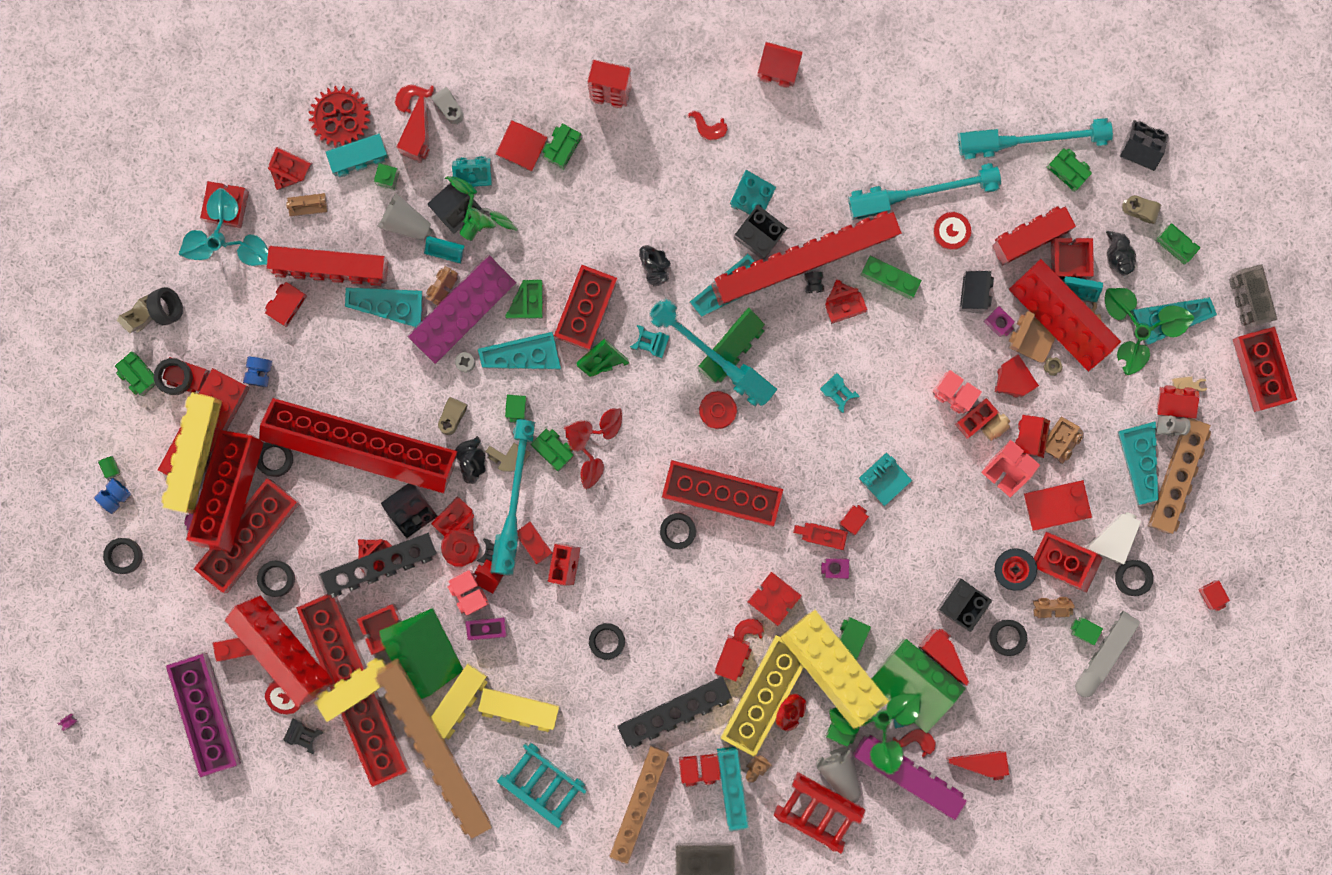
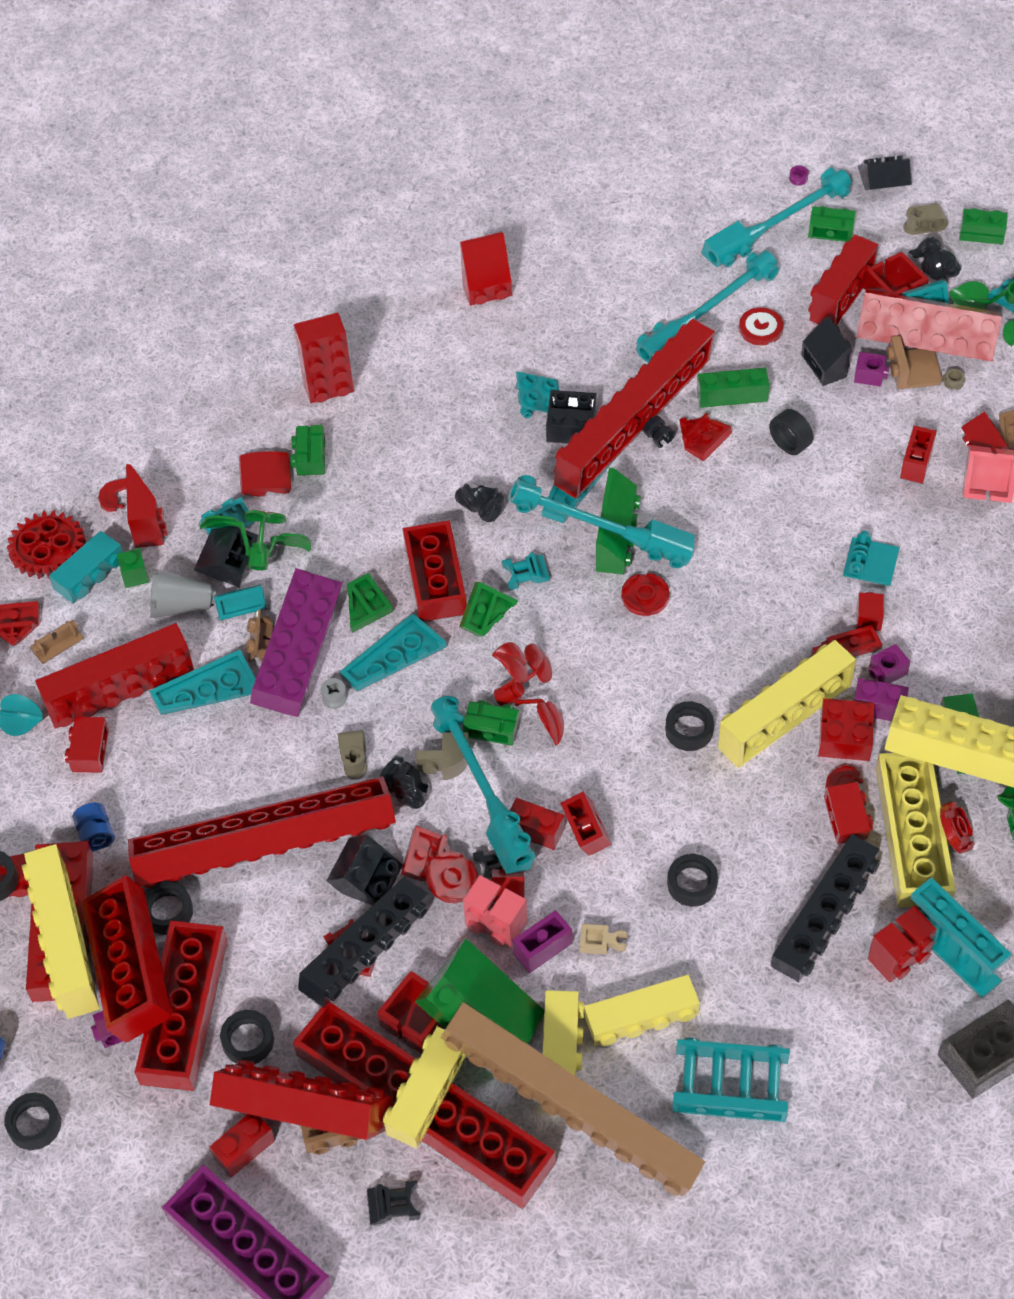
camera: 25 degrees left, 30 degrees down
(278, 700) = (340, 1164): red tile -> none
(447, 103) = (163, 477): light grey piece -> none
(515, 407) = (418, 703): green brick -> none
(523, 644) = (596, 939): none -> tan plate
(639, 804) = (863, 1032): medium nougat brick -> none
(709, 132) = (455, 370): red piece -> none
(722, 493) = (710, 659): red brick -> none
(747, 559) = (785, 703): none -> light yellow brick
(757, 766) = (968, 896): medium nougat hinge -> none
(811, 591) = (883, 695): none -> magenta brick
(831, 388) = (752, 505): teal piece -> none
(902, 345) = (798, 425): none -> black tyre
(963, 399) = (874, 449): coral piece -> none
(996, 426) = (943, 455): tan brick -> none
(1015, 378) = (926, 408): red slope -> none
(1075, 106) = (803, 173): none -> magenta bush

